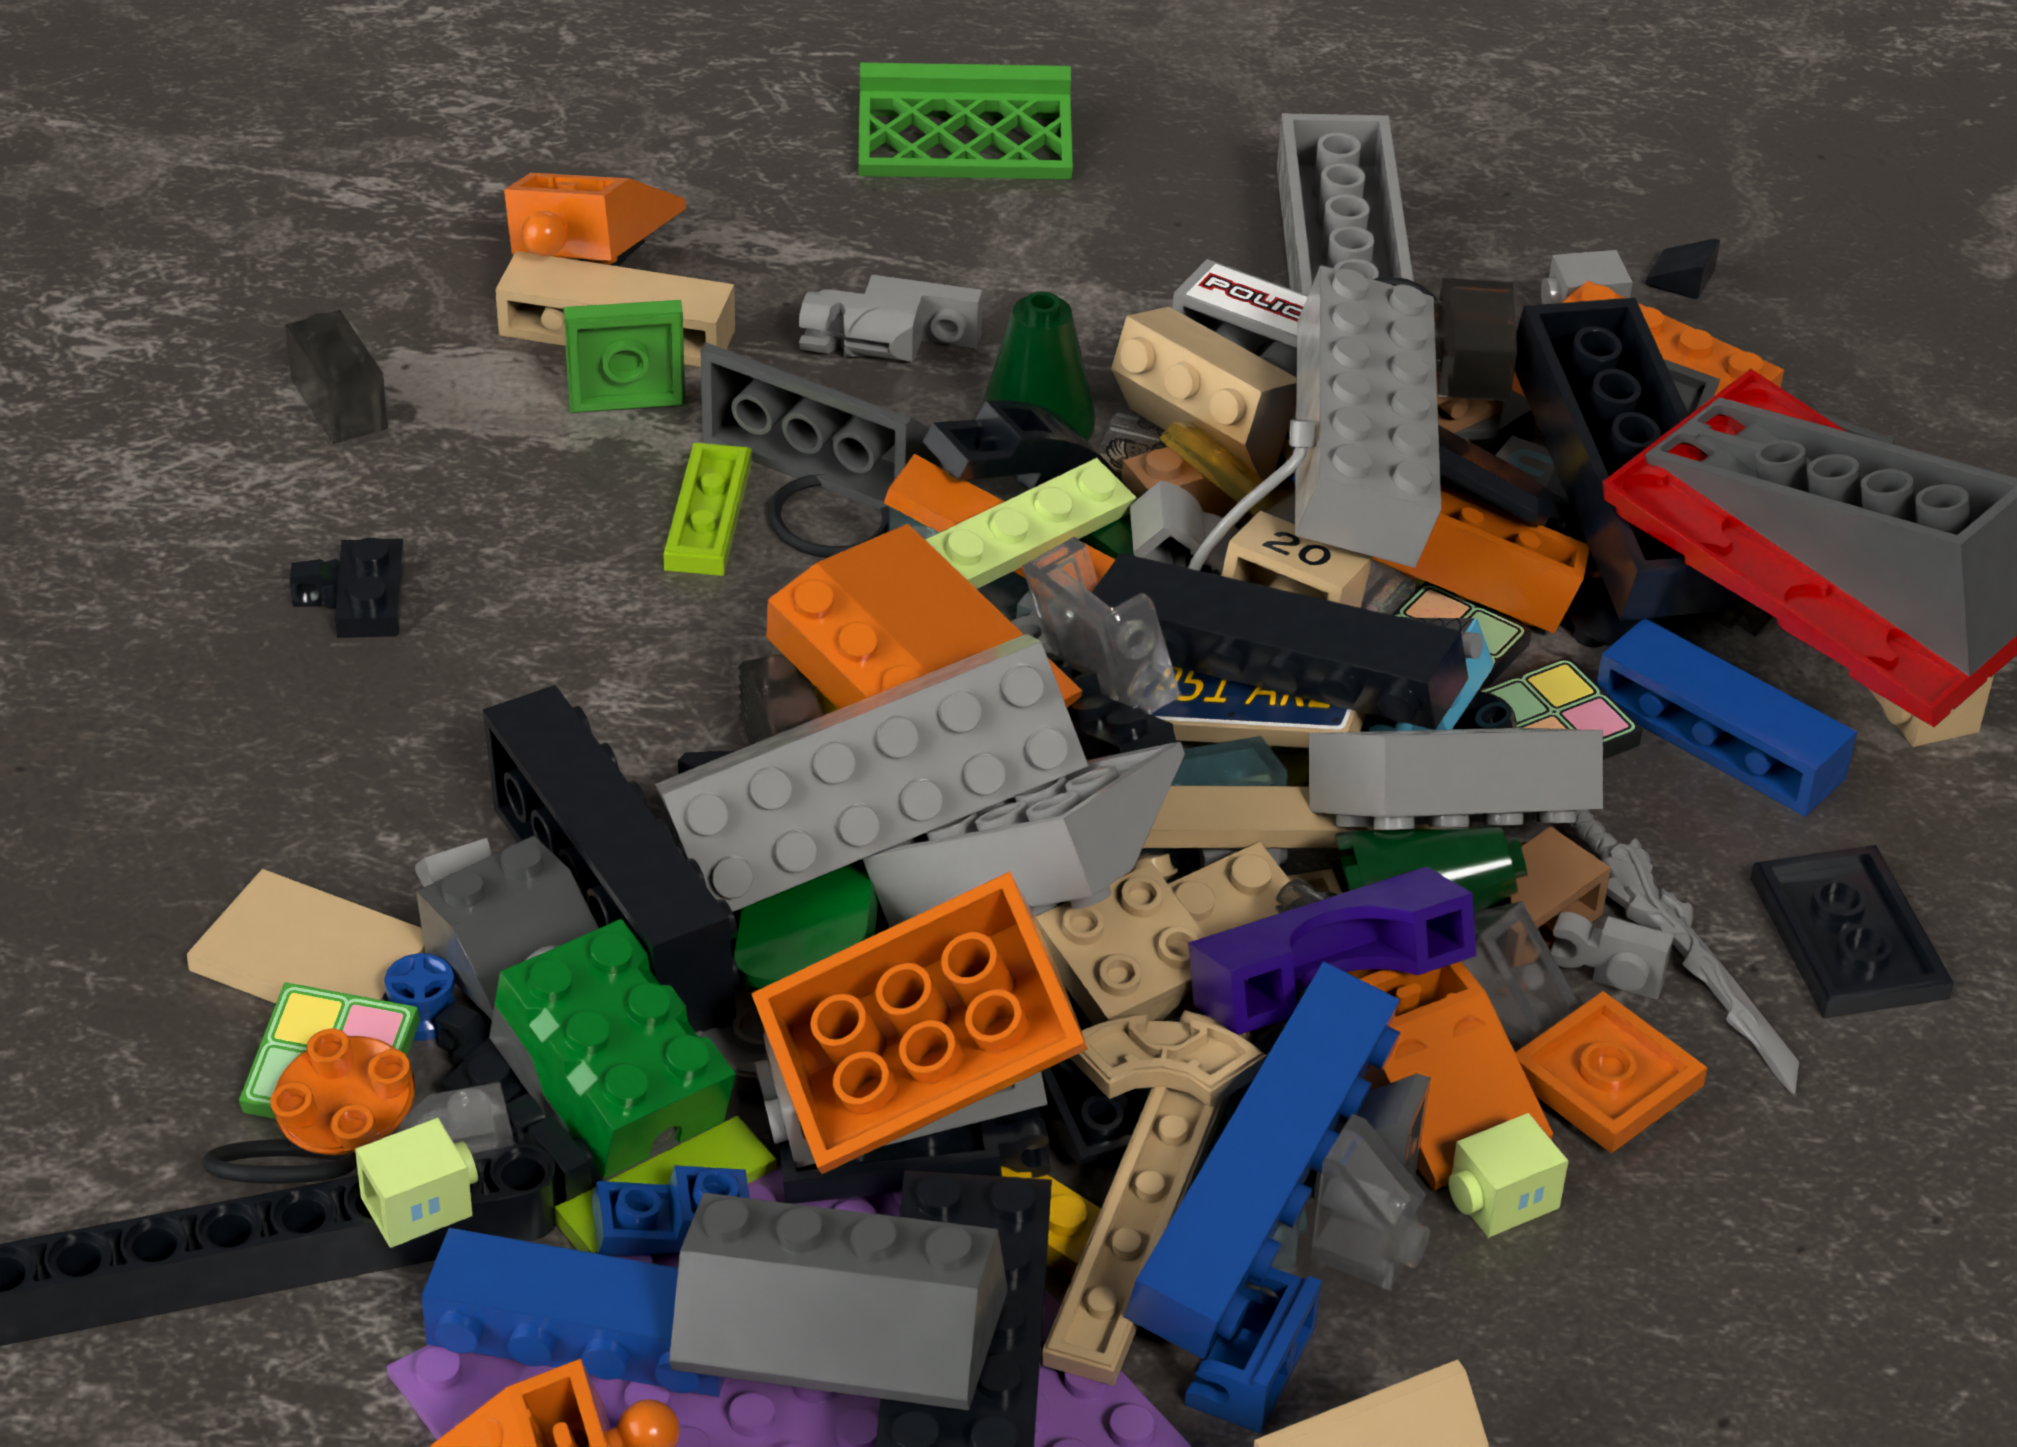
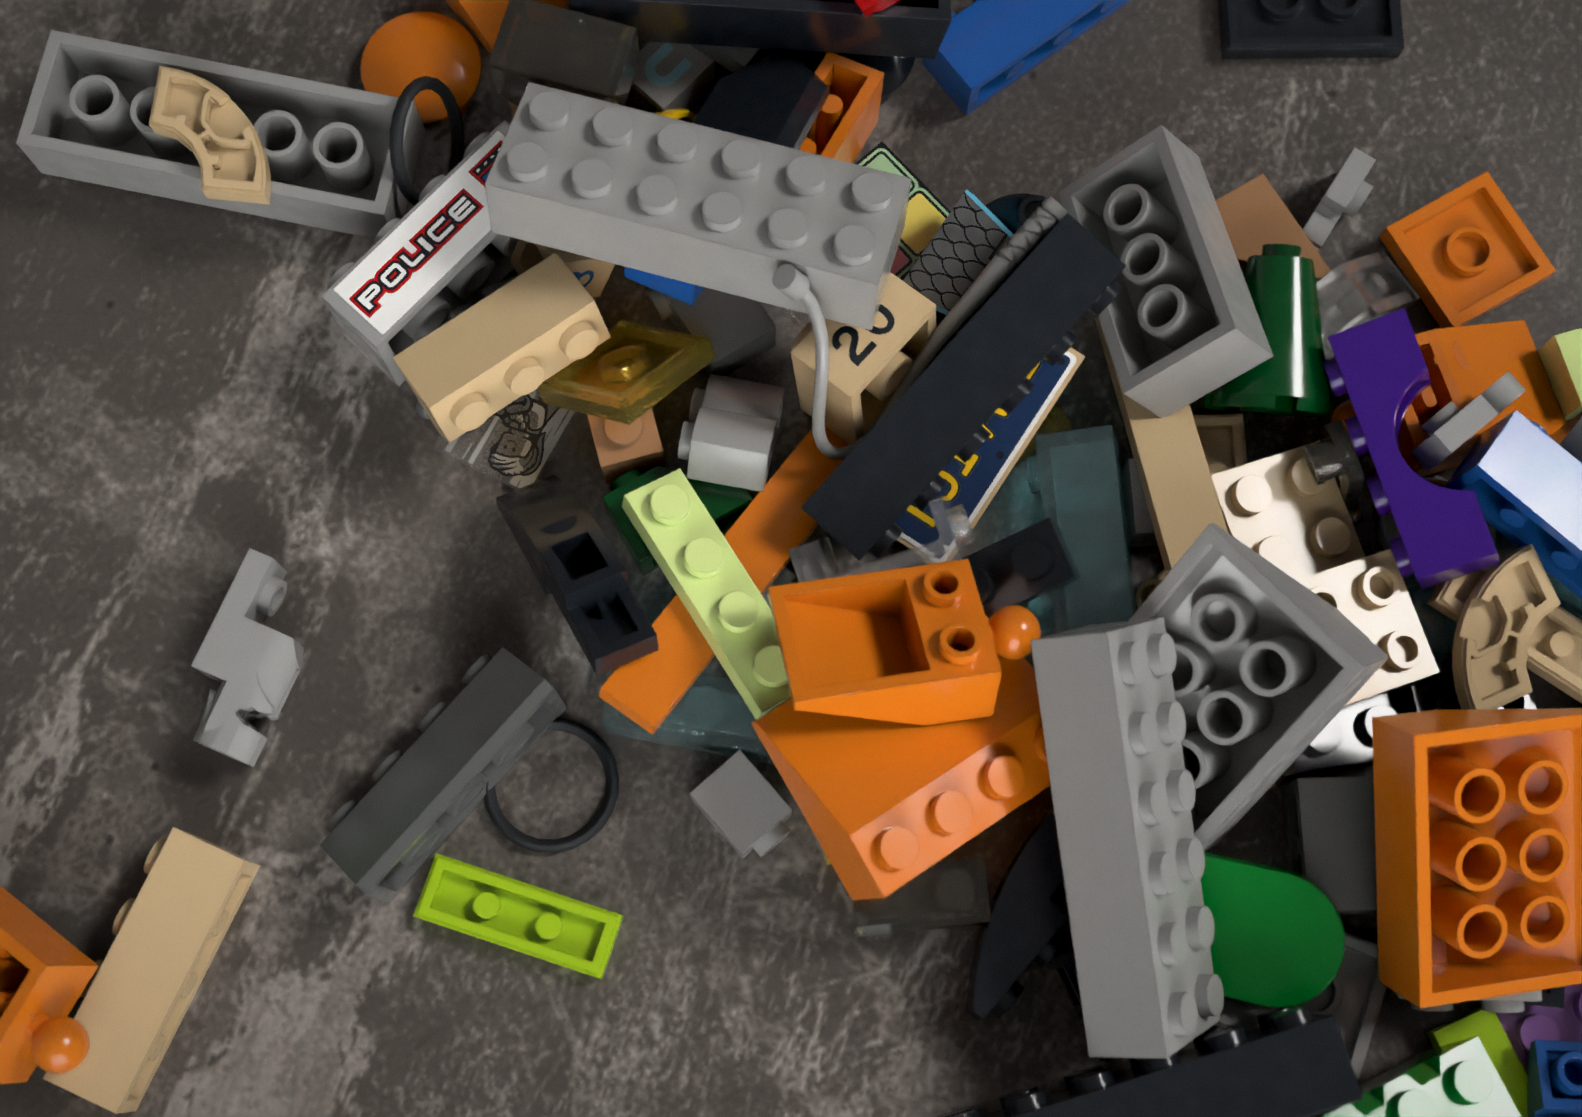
camera: 80 degrees left, 35 degrees up
(625, 356) = (284, 976): bright green tile -> none
(1000, 579) = (889, 641): none -> orange slope
(1044, 362) = (431, 531): dark green cone -> none
(1330, 205) = (216, 132): none -> tan tile
(1376, 968) = (1453, 426): none -> light grey plate
(1567, 698) = (1000, 149): tile -> none
(1634, 889) = (1277, 142): light grey sword -> none

